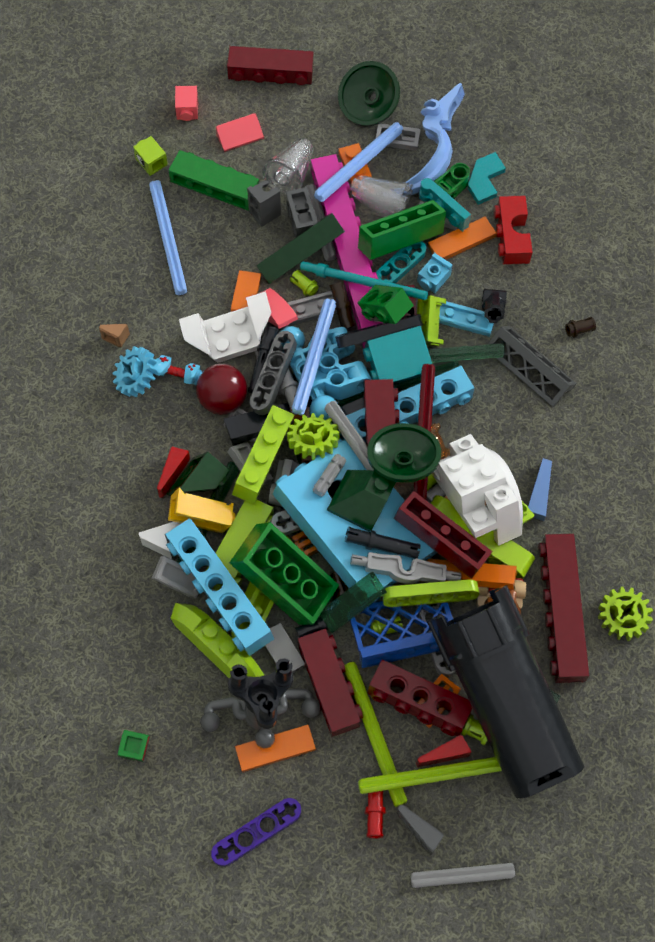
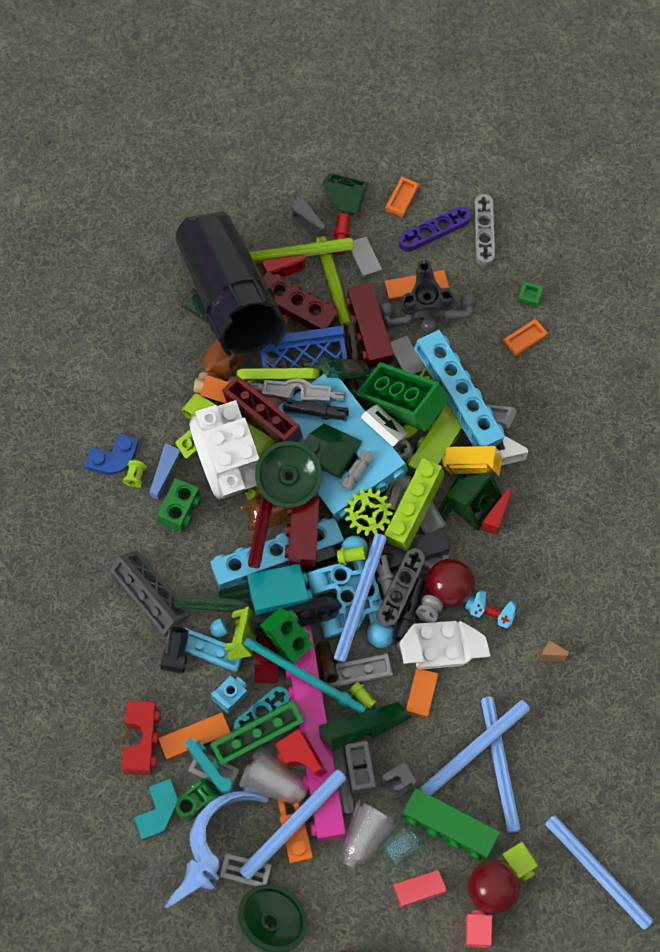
camera: 175 degrees left, 0 degrees up
(77, 157) = (599, 872): none -> light blue axle
(135, 371) = (532, 607): medium azure gear -> none
(140, 689) = (525, 337): none -> orange tile
(173, 127) = (494, 887): none -> dark red piece
(191, 242) = (475, 748): none -> light blue axle
(195, 836) = (484, 230): none -> light grey beam
(212, 640) = (479, 375): lime brick -> none
(242, 361) = (429, 609): none -> light grey wheel
(256, 157) = (400, 846): none -> clear light blue brick
(281, 311) = (392, 660): coral slope -> none
(301, 879) = (402, 197): none -> orange tile
(303, 527) = (384, 425): none -> white tile
(331, 390) = (351, 554): none -> lime pin
(342, 782) = (365, 258): none -> light grey tile
(348, 432) = (335, 513): light grey axle -> none
(348, 653) = (352, 342): none -> dark brown pin
(356, 209) = (298, 750): none -> red arch
(377, 875) = (345, 192): none -> dark green slope
(453, 334) = (218, 628): none -> medium azure hinge
(462, 875) = (279, 189): light grey axle -> none
(519, 451) = (173, 504): none -> green brick
(564, 608) = (163, 368): dark red brick -> none
(572, 481) = (130, 479): none -> lime bush
(574, 328) = (93, 626): dark brown pin -> none
(595, 499) = (114, 461): none -> blue plate
(616, 606) = (112, 361): lime gear -> none

